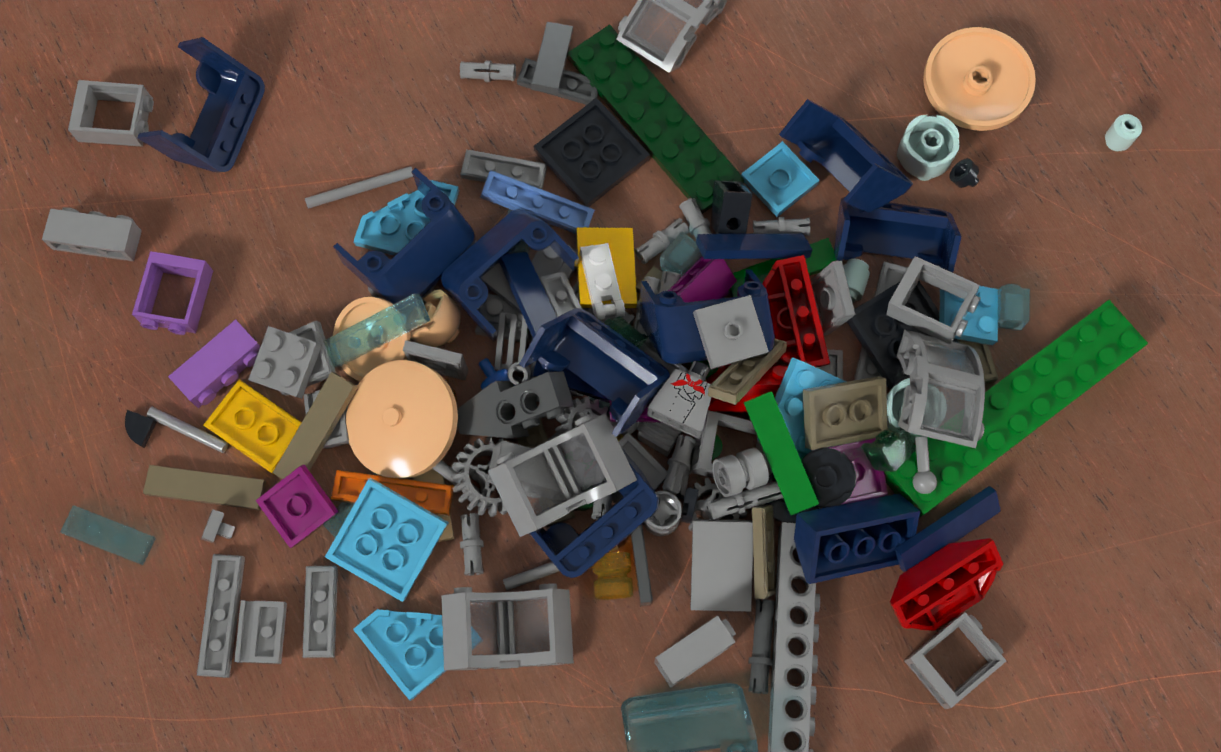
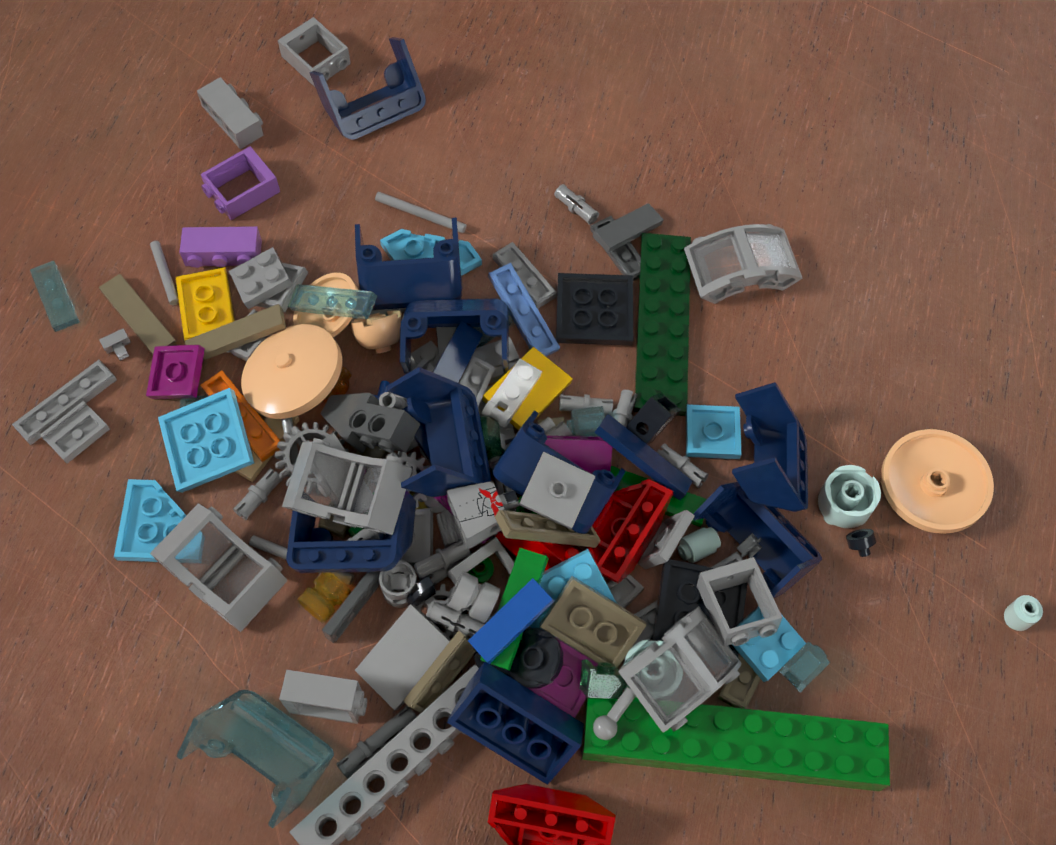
camera: 40 degrees right, 10 degrees down
(139, 427) = (138, 248): black tile -> none
(320, 612) = (123, 453): light grey tile -> none
(441, 360) = (352, 353): light grey plate -> none
(791, 465) = (511, 621): none -> blue tile
(890, 249) = (750, 546): none -> dark grey plate
(948, 528) = (597, 784): dark blue tile -> none

